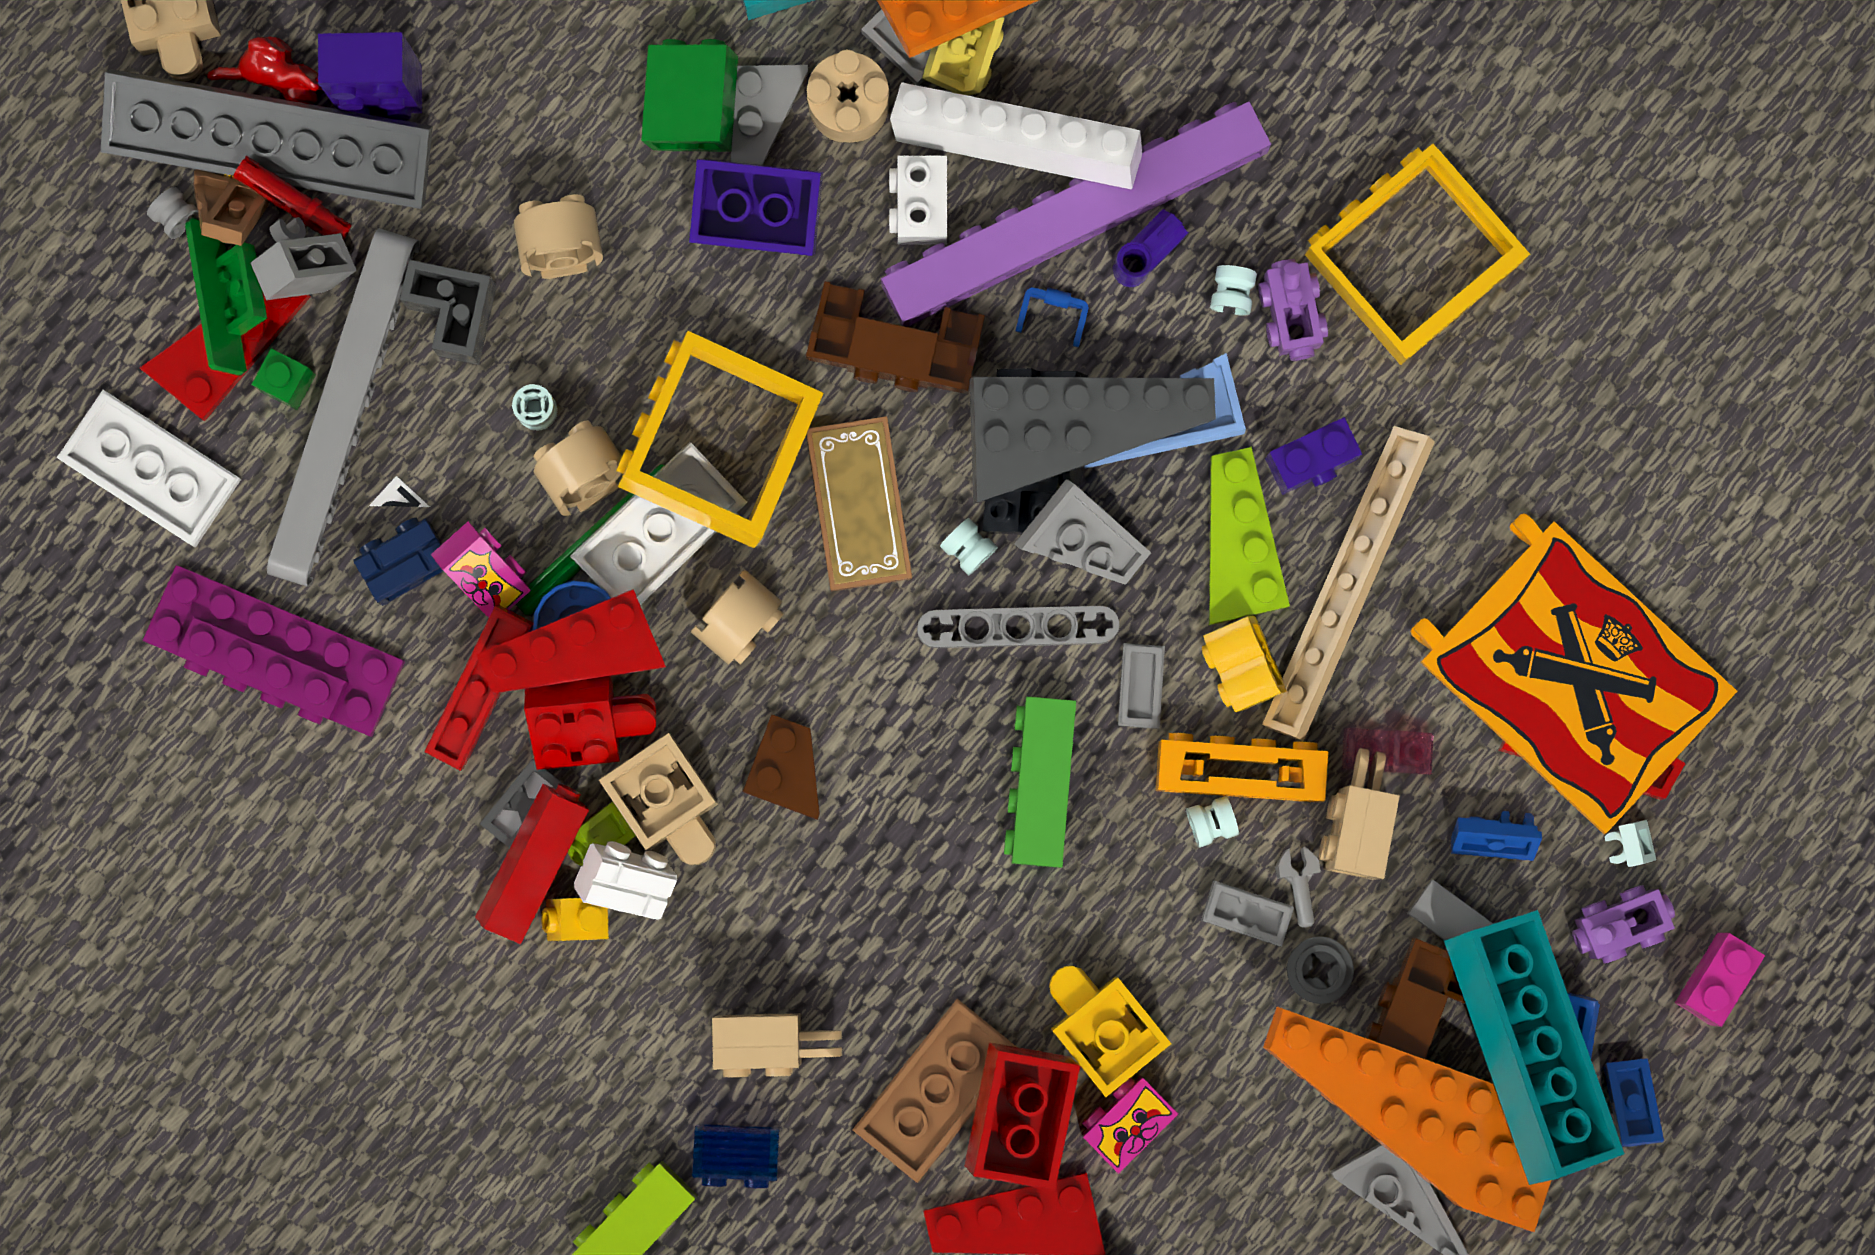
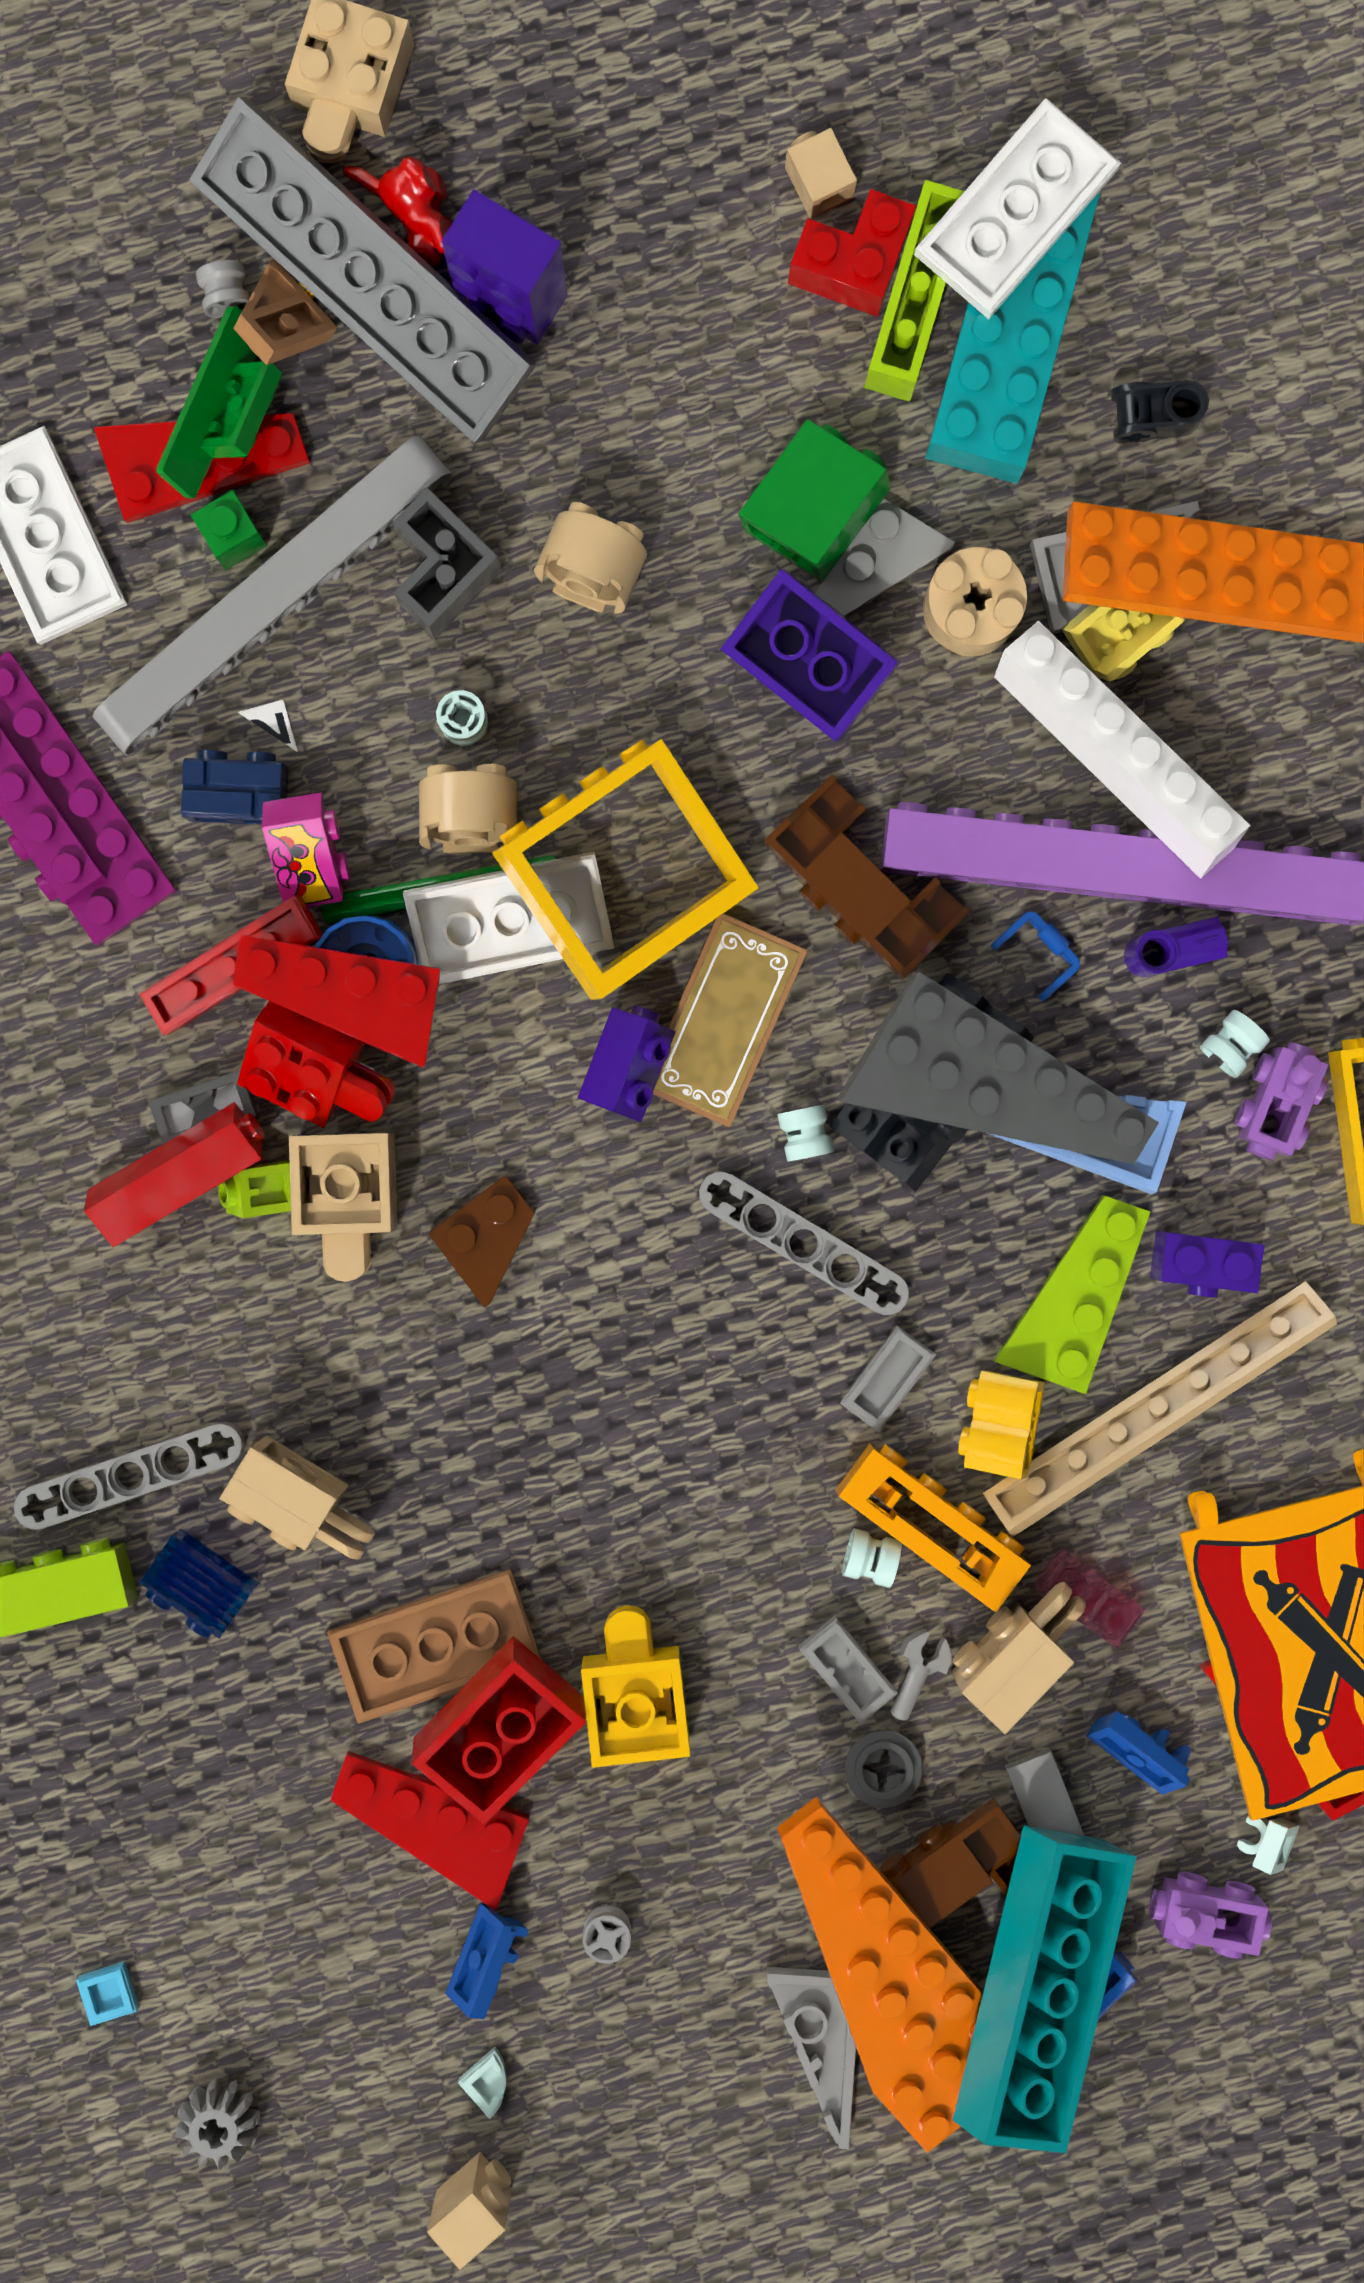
camera: 35 degrees right, 5 degrees up
(290, 199) = (358, 371): red pin -> none
(301, 264) = (315, 423): light grey brick -> none
(574, 920) = (185, 1255): yellow bracket -> none
(620, 1121) = (108, 1485): none -> light grey beam
(625, 880) = (254, 1251): white brick -> none
(738, 618) = (531, 1061): tan brick -> none
(808, 576) = (627, 1062): none -> dark purple brick
(921, 199) = (981, 753): white brick -> none
(1042, 782) = (728, 1414): bright green brick -> none
(1083, 535) = (926, 1197): light grey wing -> none
(1127, 1123) = (598, 1801): brick -> none
(1204, 1224) = (604, 1943): none -> light grey wheel
(1633, 1102) = (1107, 2094): blue plate -> none
(1720, 979) = (1270, 2029): dark pink brick -> none

